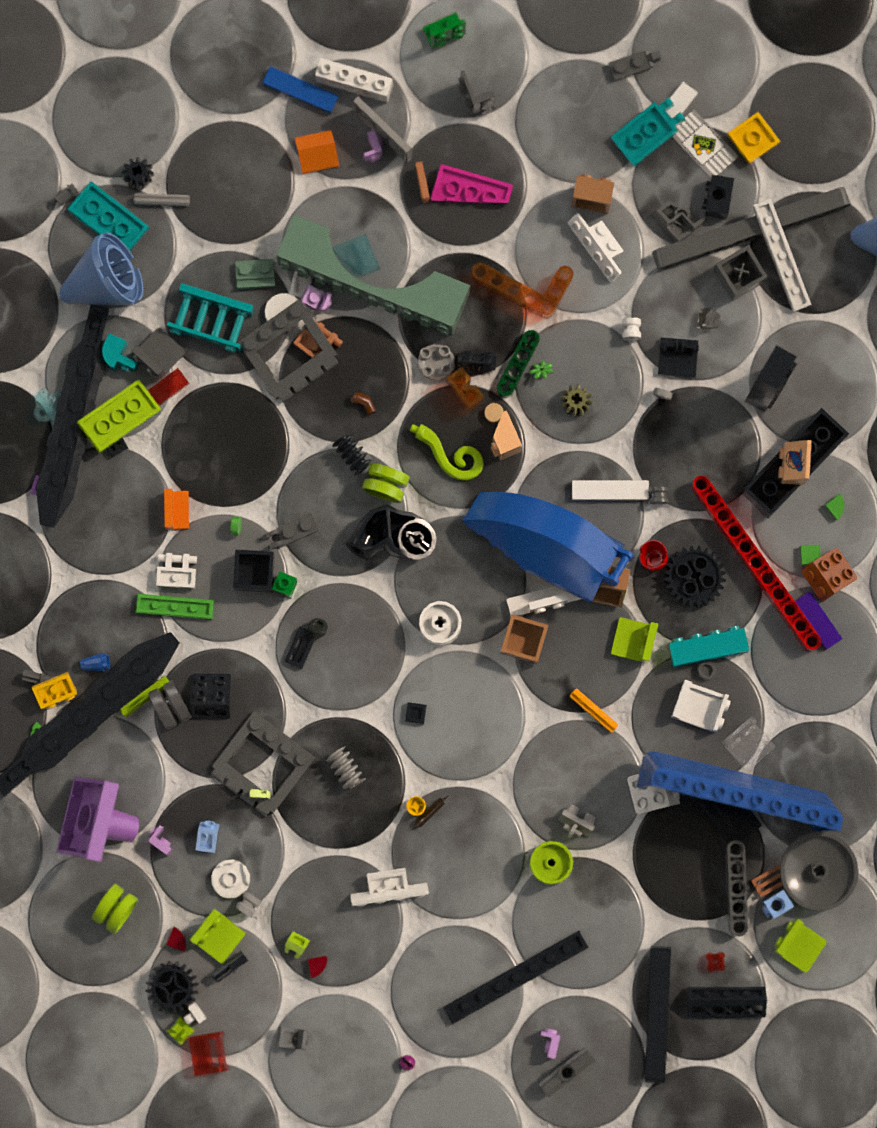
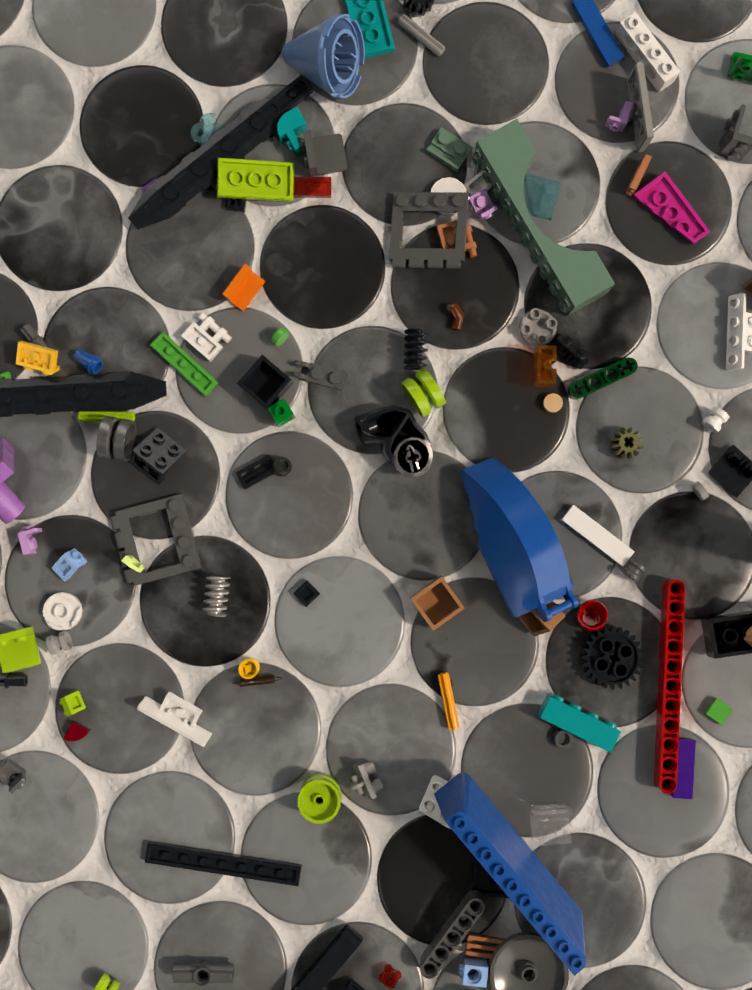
camera: 40 degrees right, 5 degrees up
(224, 305) = (397, 140): teal fence -> none
(317, 152) = (572, 89): orange slope -> none
(410, 1059) = (90, 863): magenta hinge -> none
(430, 438) = (486, 384): lime plant -> none
(442, 612) = (383, 527): white wheel -> none
(505, 439) = (547, 431): light nougat slope -> none
(524, 291) = (653, 324): clear orange beam -> none
(539, 601) = (472, 580): white bracket -> none
(542, 370) = (617, 398): bright green plant -> none
(551, 1046) = (212, 939): lavender bracket -> none
(634, 640) = (525, 671): lime bracket -> none
(700, 707) = (536, 765): white panel -> none
(829, 574) = (721, 739): dark orange bracket -> none

